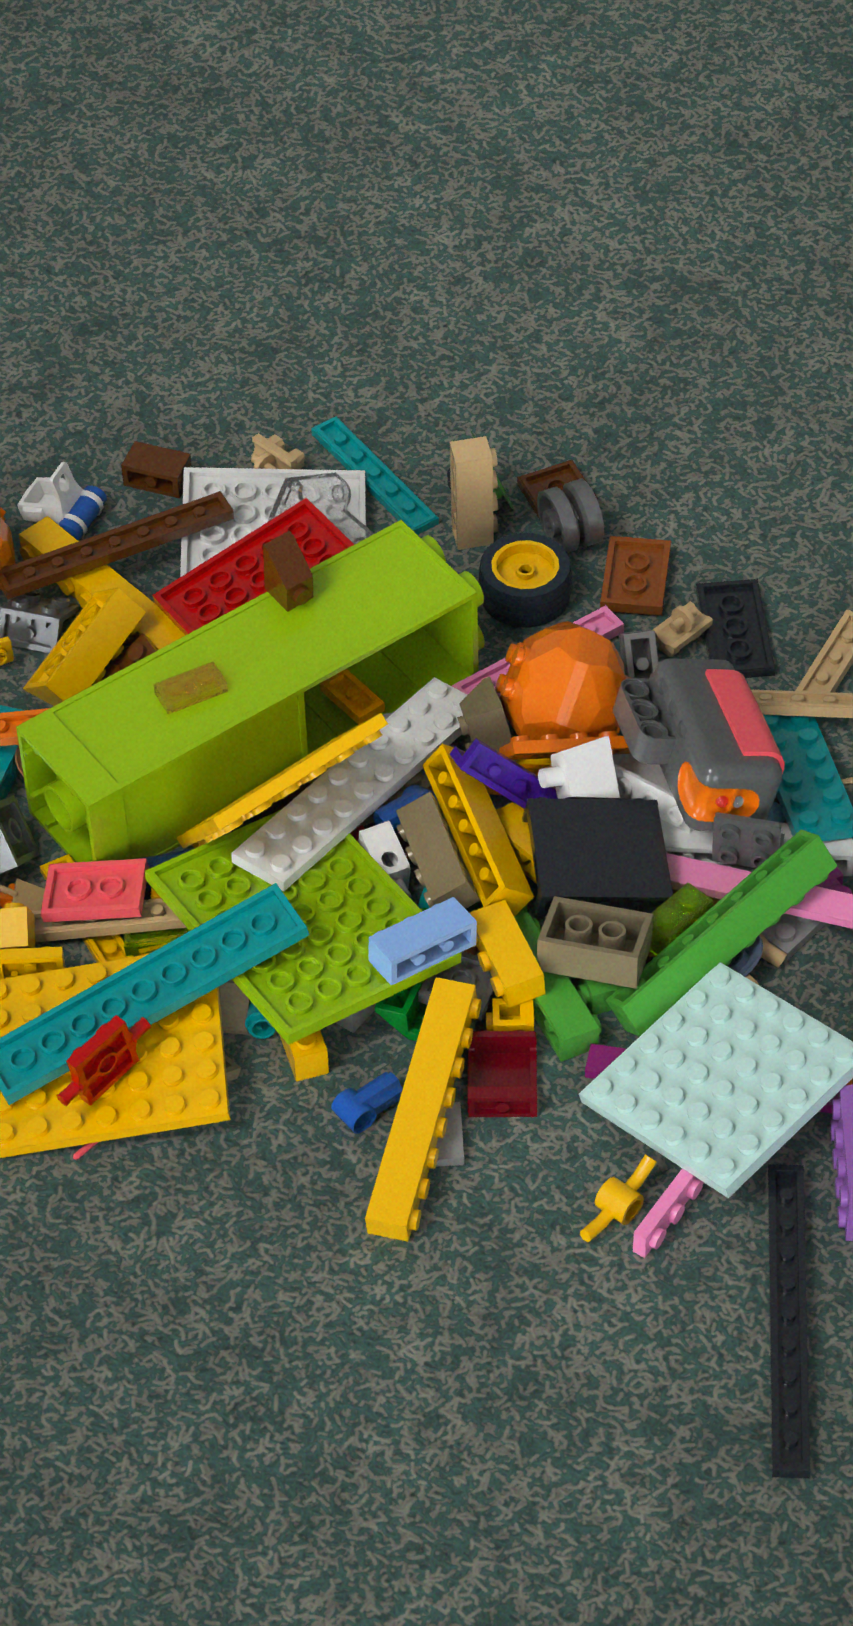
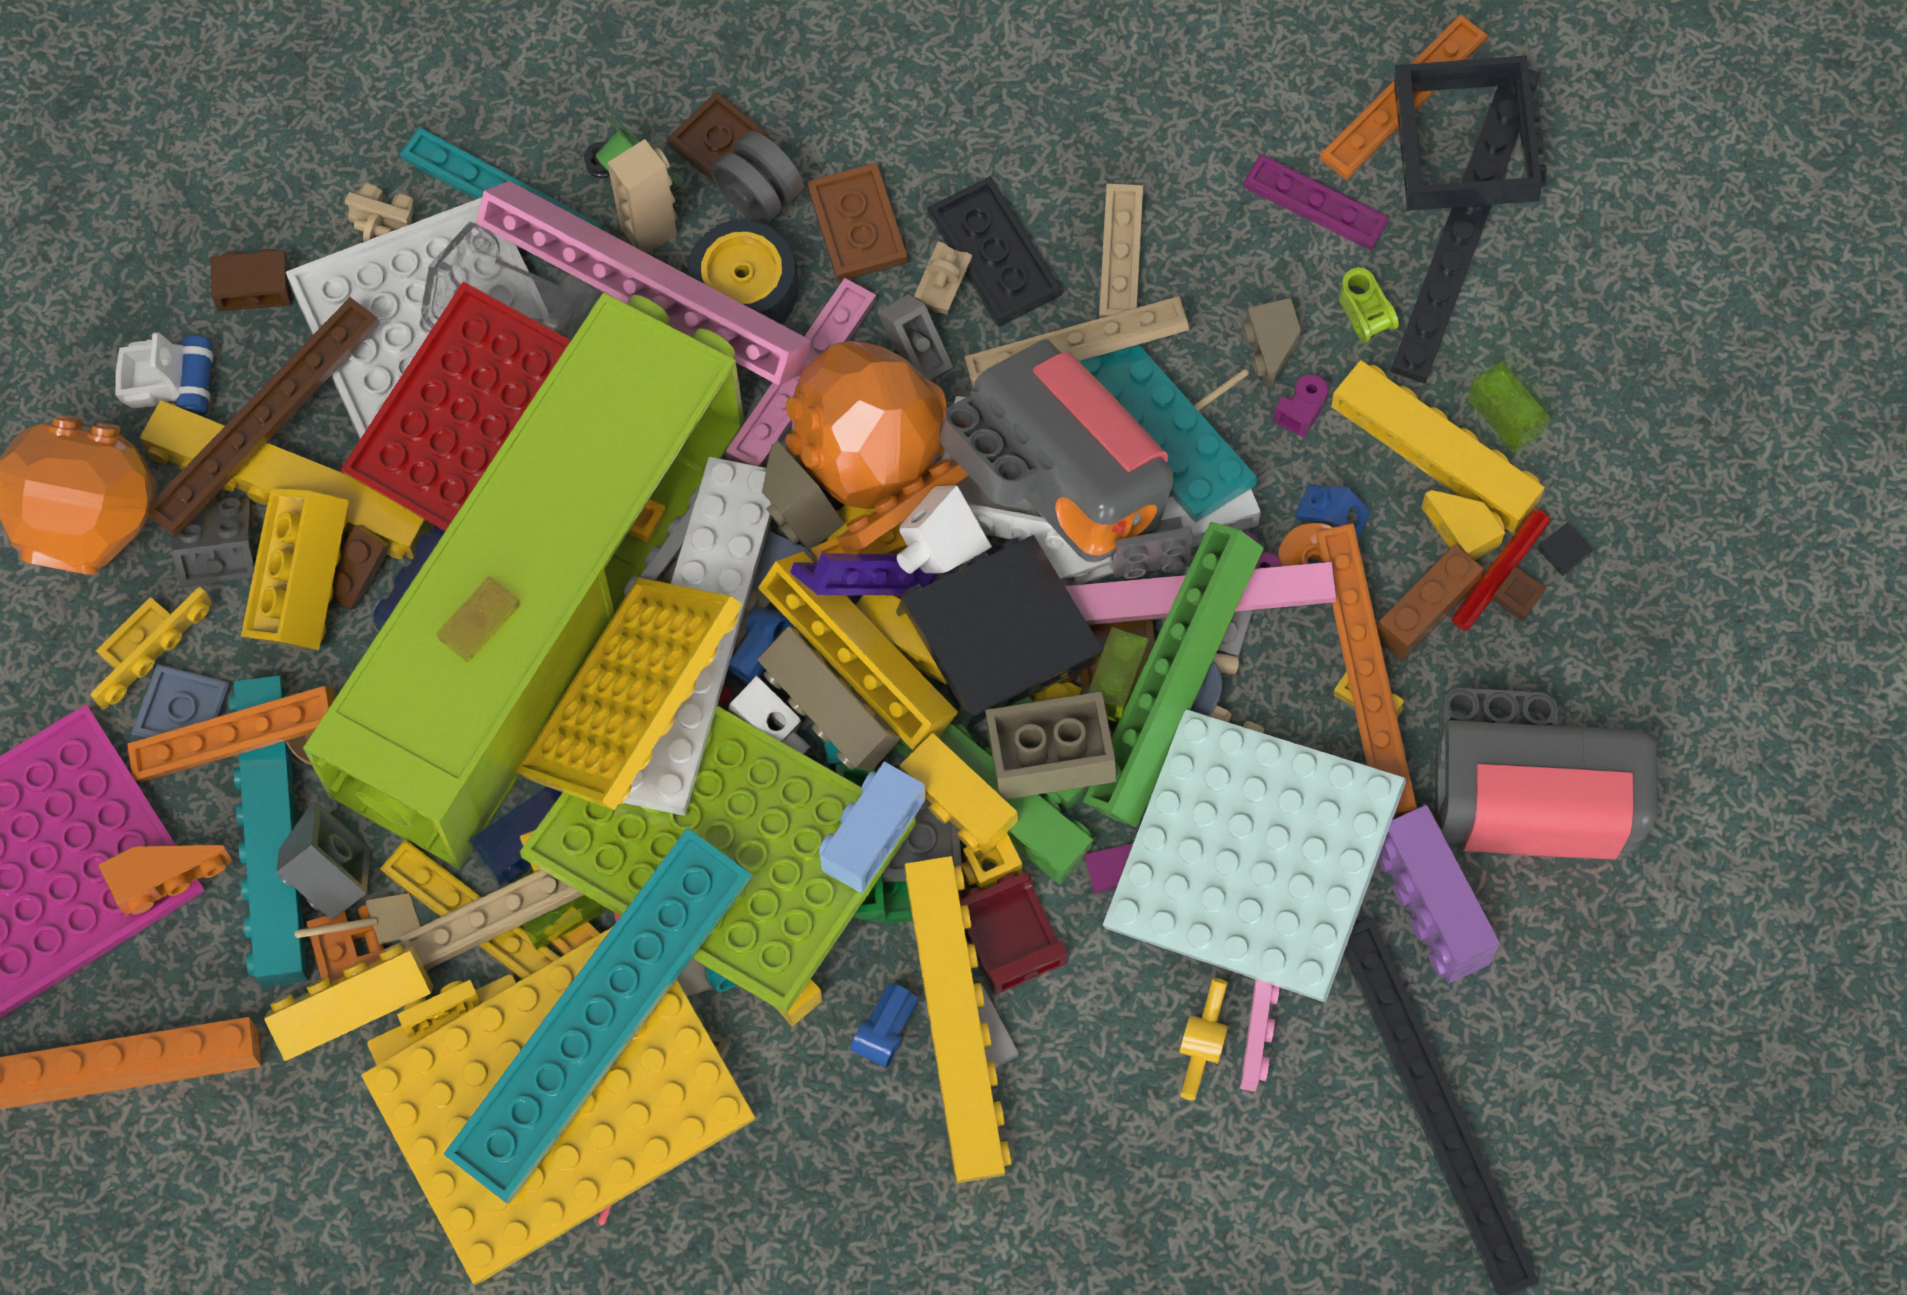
camera: 25 degrees left, 20 degrees up
(94, 890) = (469, 890): coral plate -> none
(103, 1060) = (592, 1134): red plate -> none
(287, 572) = (521, 429): reddish brown slope -> none
(398, 501) = (627, 271): none -> bright pink brick

